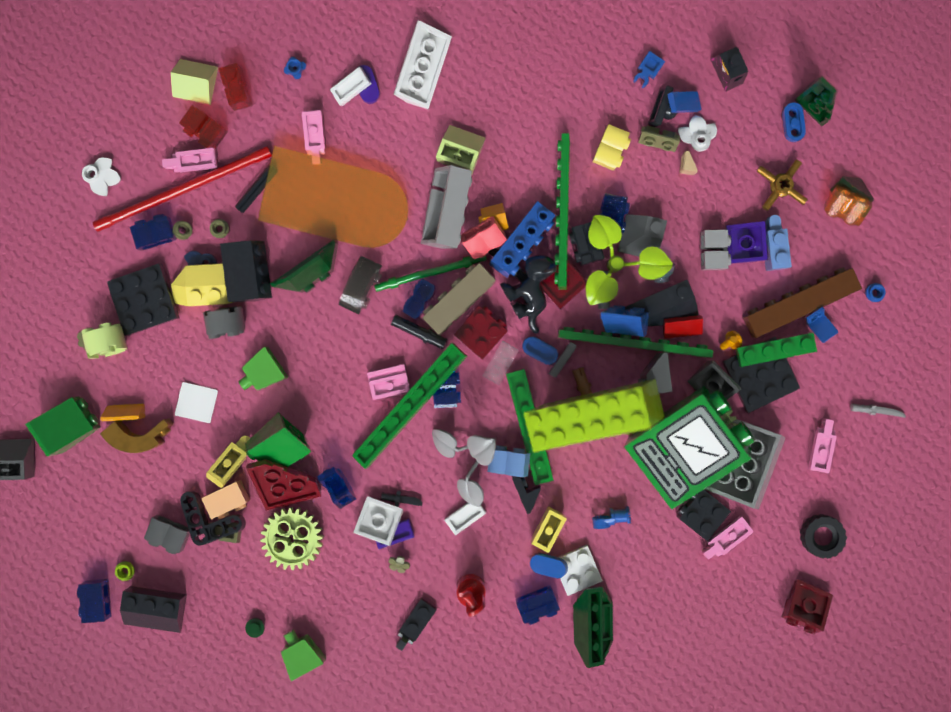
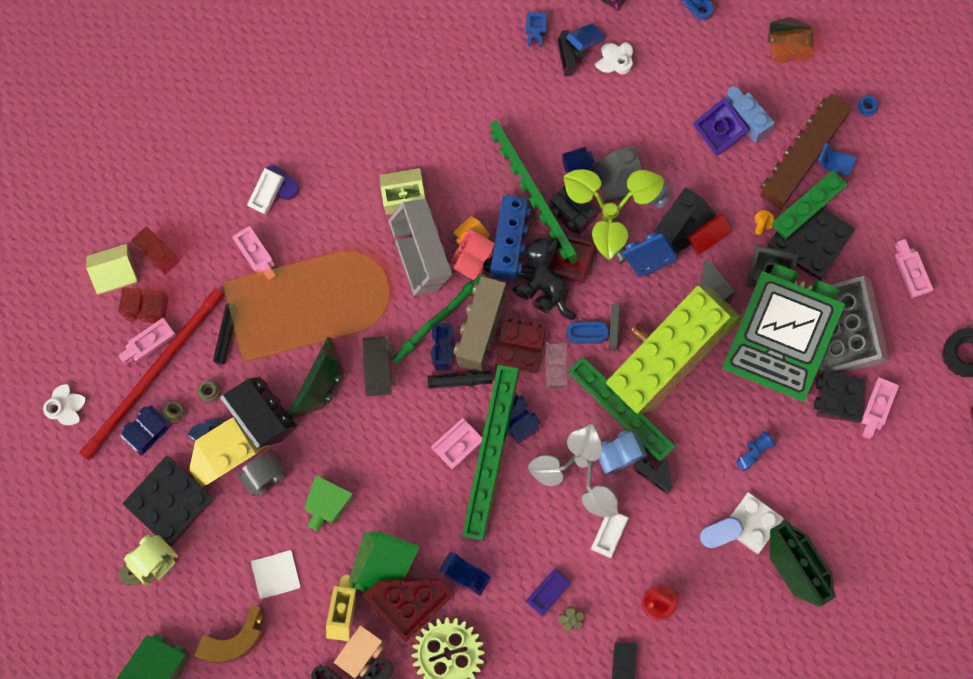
camera: 20 degrees left, 15 degrees down
(123, 412) = (207, 625): light orange slope -> none
(291, 64) = (198, 200): blue plate -> none
(378, 521) = (526, 585): white plate -> none
(402, 499) = (532, 554): black piece -> none
(422, 65) = (323, 137): white slope -> none
(537, 604) = (734, 578): clear blue brick -> none
(548, 529) = (699, 495): light yellow brick -> none
(611, 147) = (543, 112): light yellow brick -> none
(642, 343) = (664, 276): green plate -> none
(667, 141) = (588, 81): olive hinge -> none
(687, 164) = (623, 89): tan slope -> none
(715, 259) = (693, 145): light grey piece -> none
(775, 184) = (720, 66): pearl gold bar -> none
(873, 409) = (936, 211): light grey piece -> none

